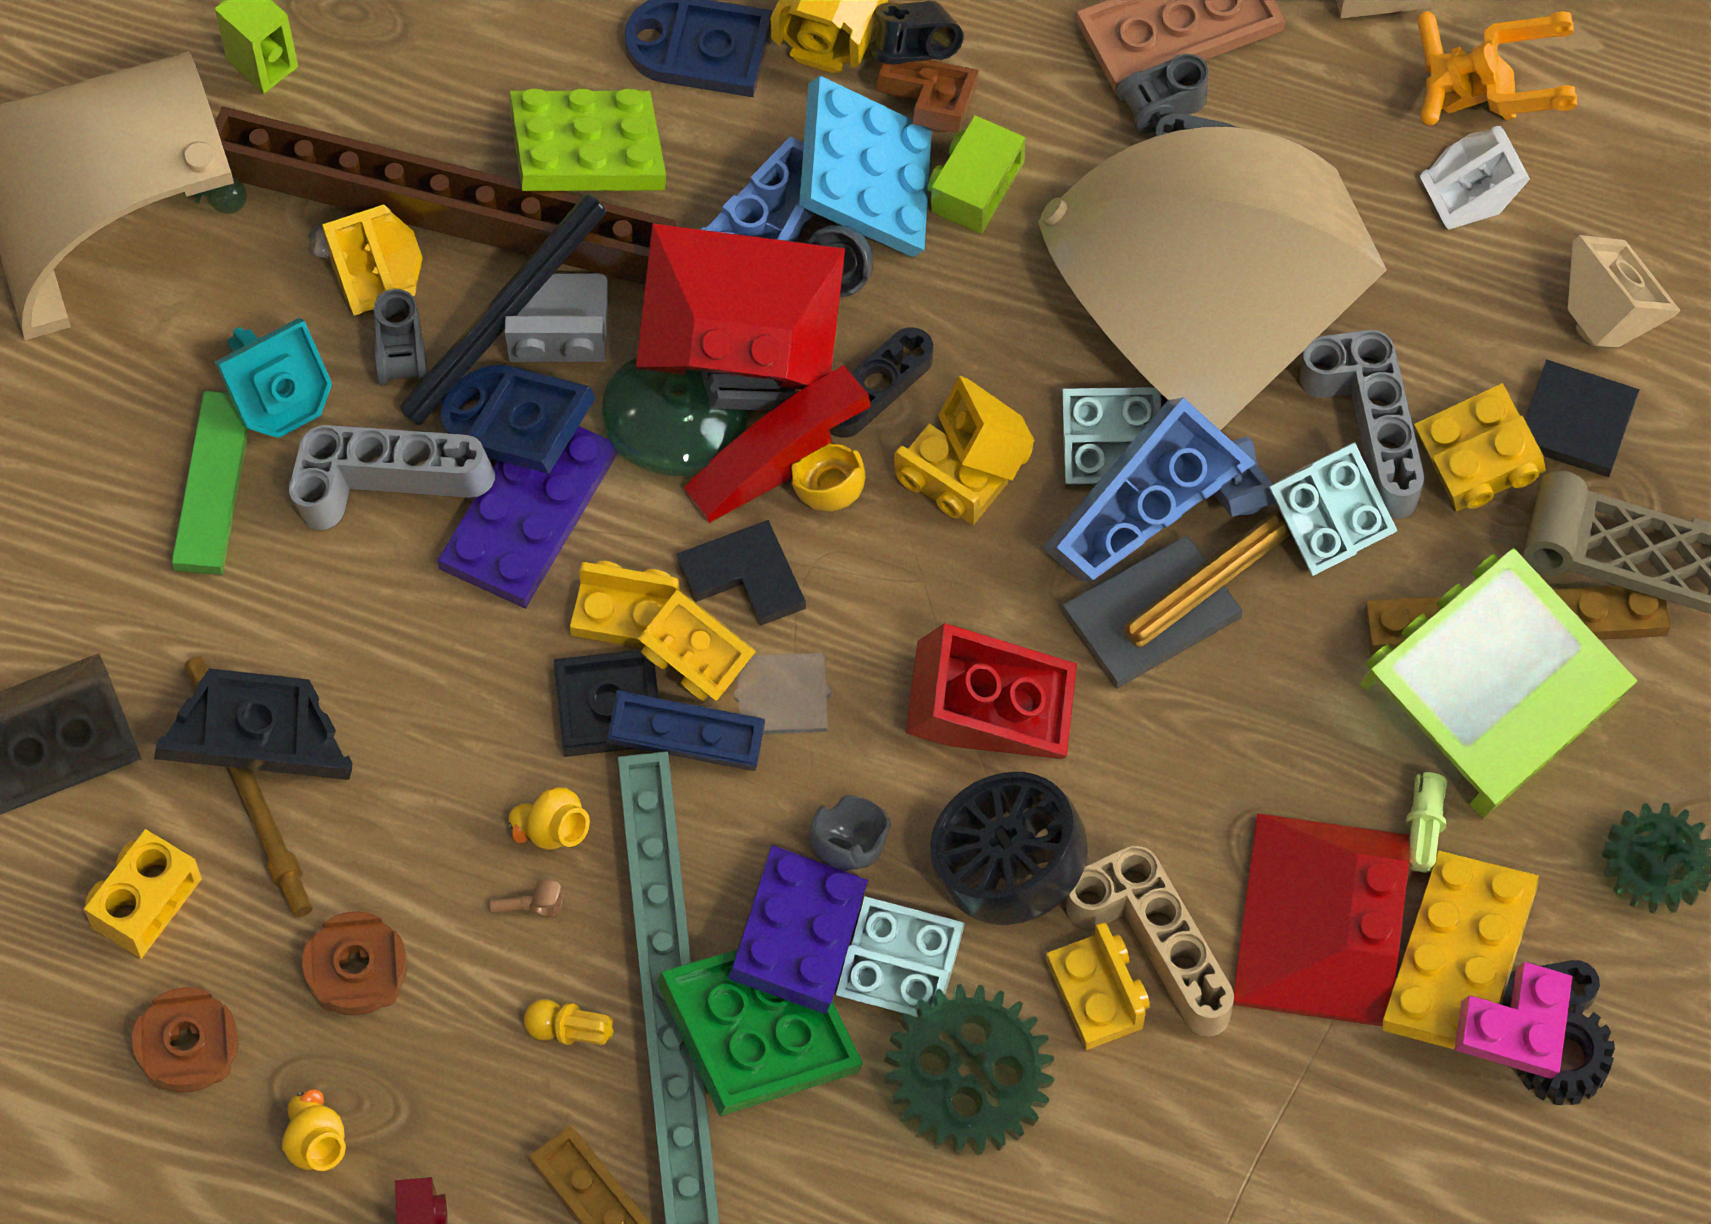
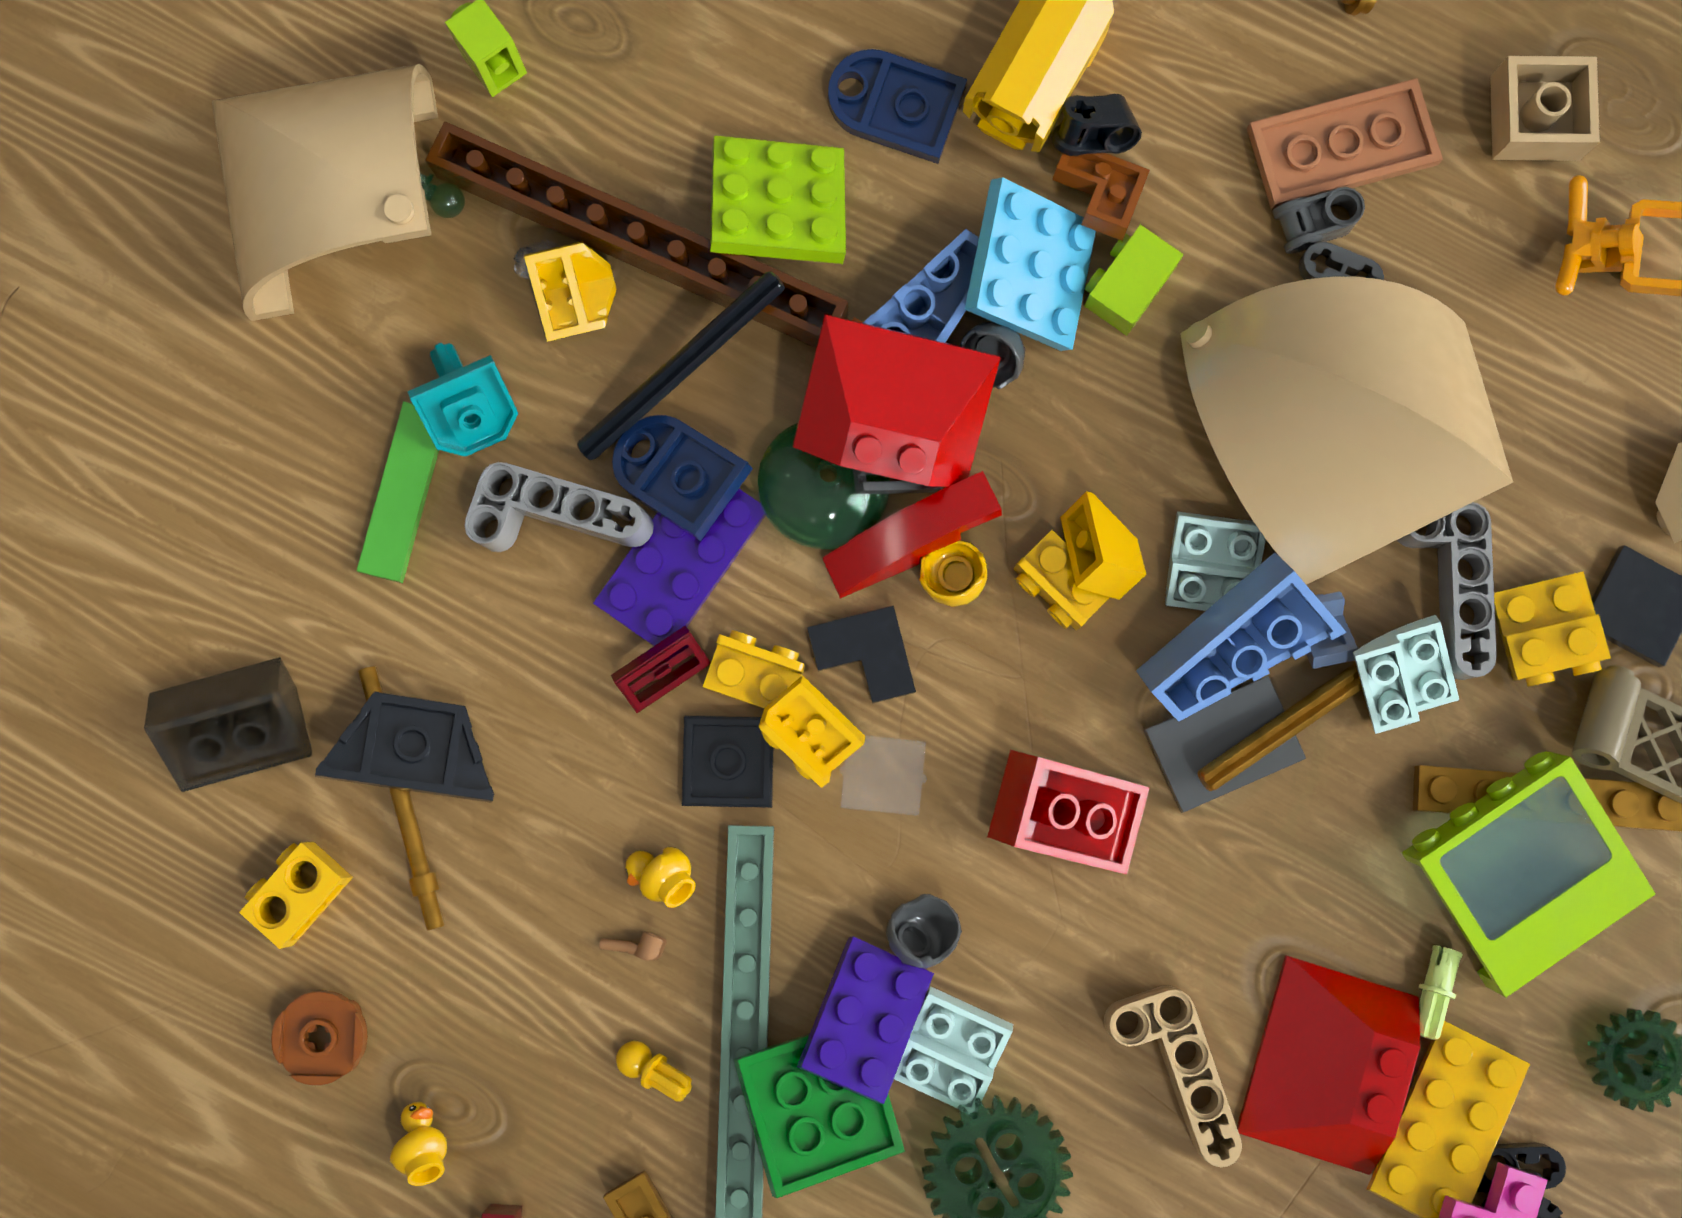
camera: 10 degrees right, 20 degrees up
(360, 992) = (455, 1005): dark orange plate -> none
(398, 345) = (583, 386): dark grey piece -> none
(489, 639) = (656, 664): none -> dark red tile
(561, 322) = (735, 378): light grey bracket -> none
(686, 730) = (792, 807): dark blue tile -> none
(884, 362) = (1043, 467): black beam -> none
(1009, 847) = (1075, 959): black piece -> none
(1099, 987) = (1121, 1106): yellow bracket -> none
(1475, 178) = (1591, 346): white slope -> none

